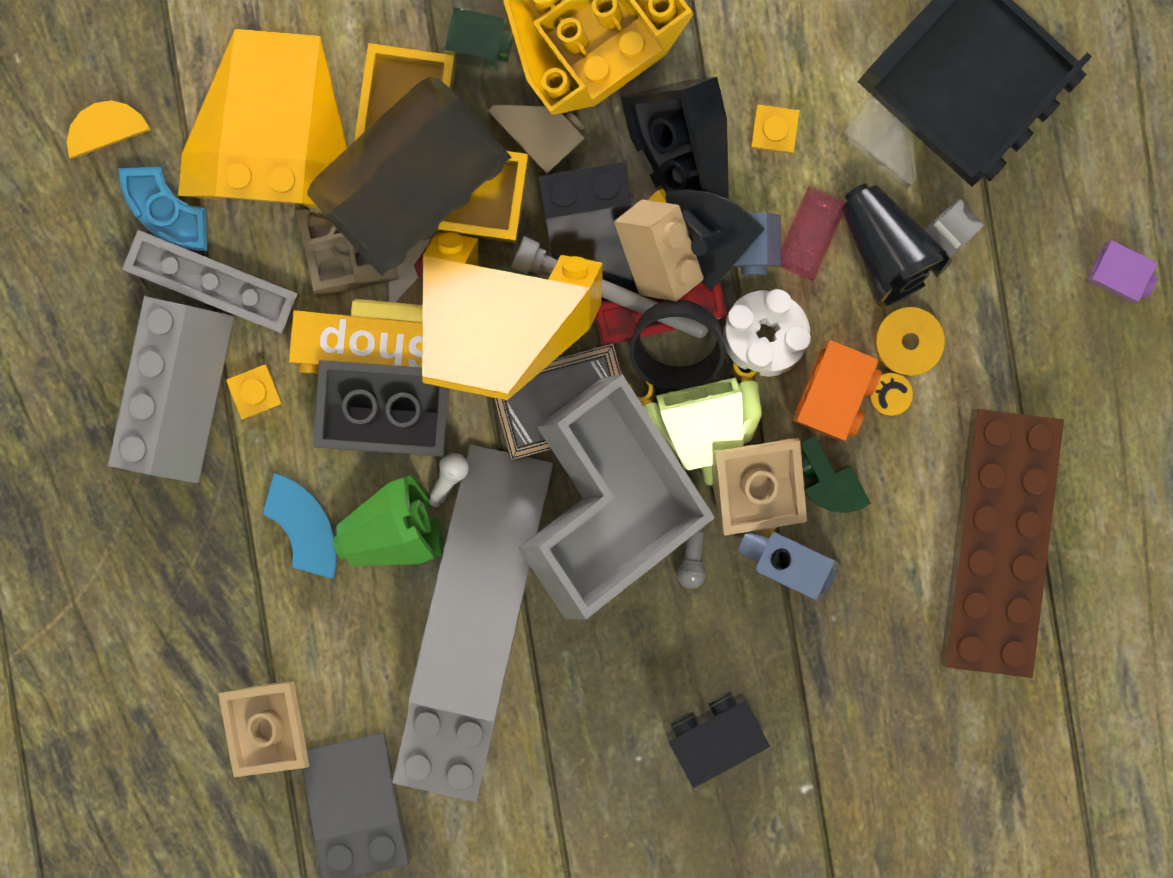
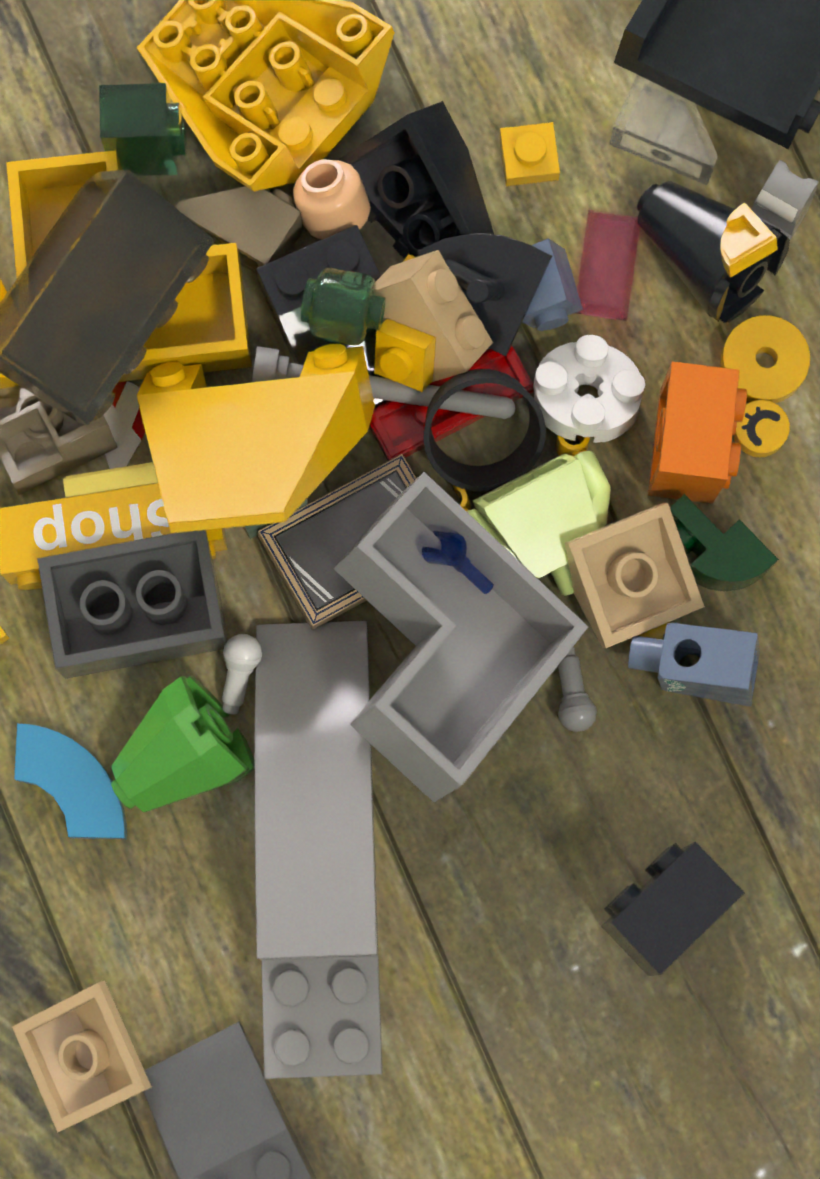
camera: 20 degrees left, 10 degrees down
(595, 230) = (342, 306): none -> clear green head
(610, 132) = (331, 198): none -> light nougat head
(628, 438) = (454, 554): none -> clear blue hand
(633, 274) = (404, 355): none -> yellow plate
(911, 261) = (745, 240): none -> yellow tile

